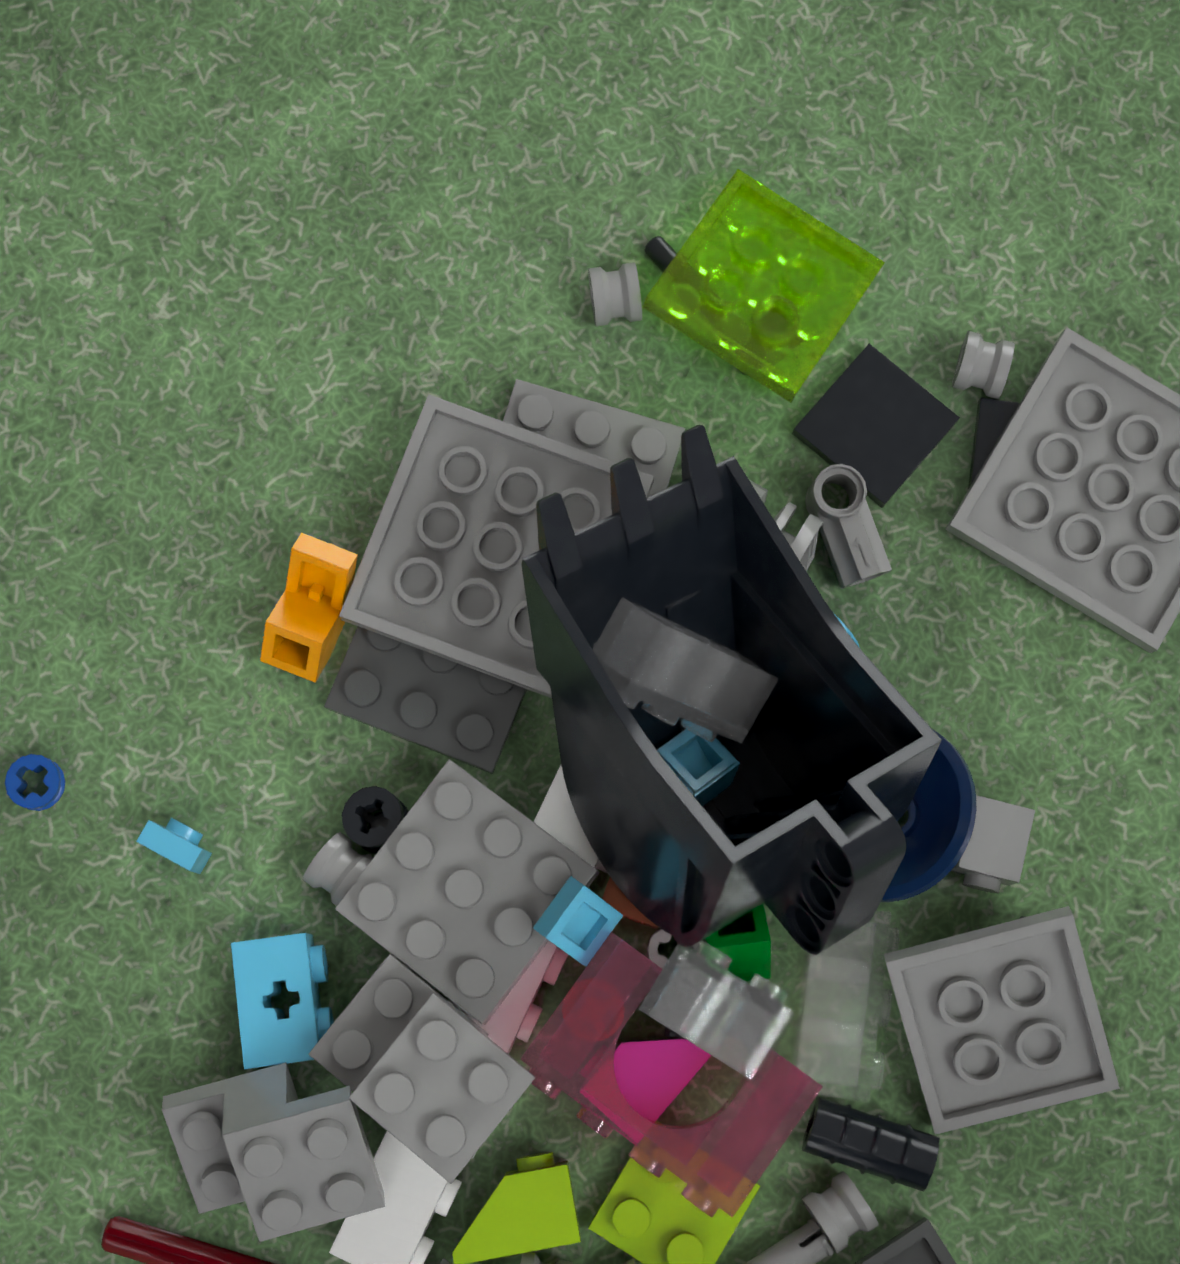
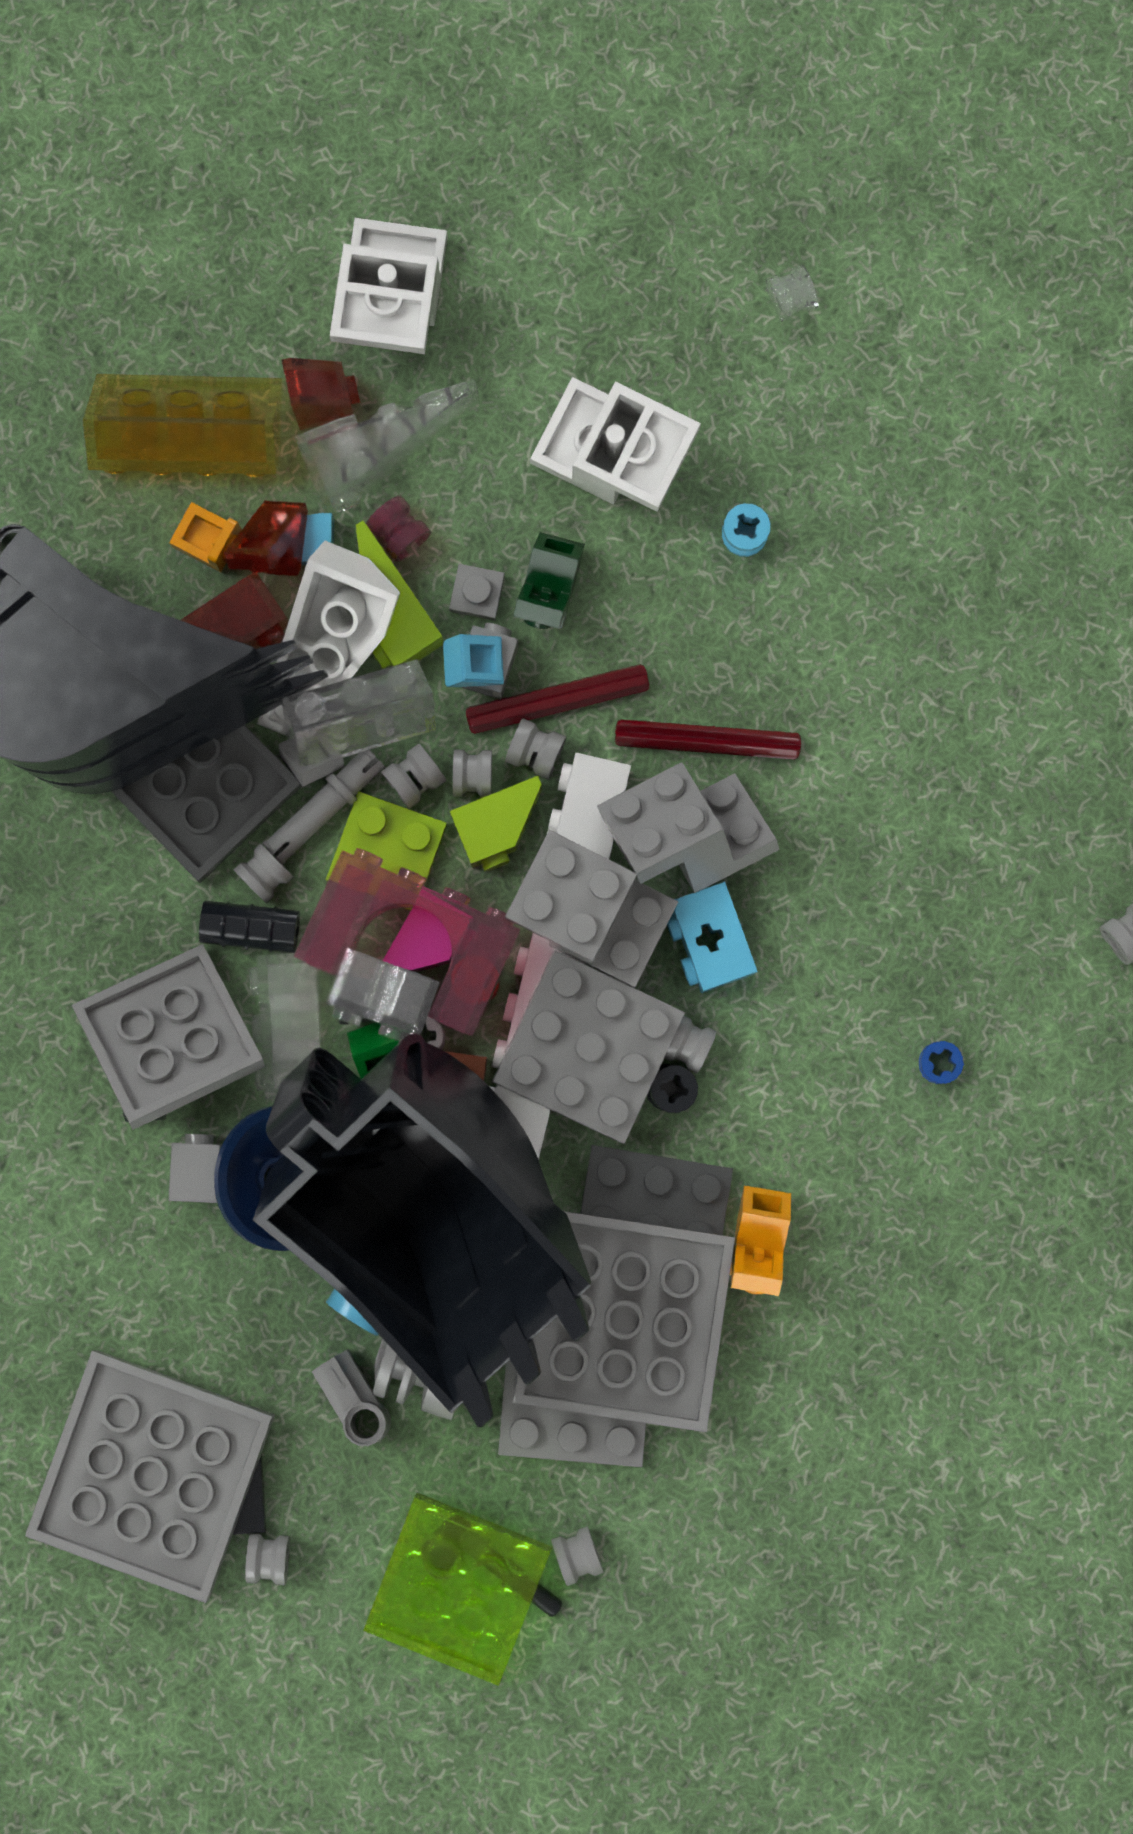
camera: 165 degrees right, 5 degrees up
(176, 843) = (819, 1038): medium azure plate -> none
(578, 921) = (498, 1039): medium azure plate -> none
(681, 674) = (458, 1240): clear brick -> none
(700, 764) = (434, 1178): medium azure slope -> none
(876, 424) = (345, 1491): black tile -> none

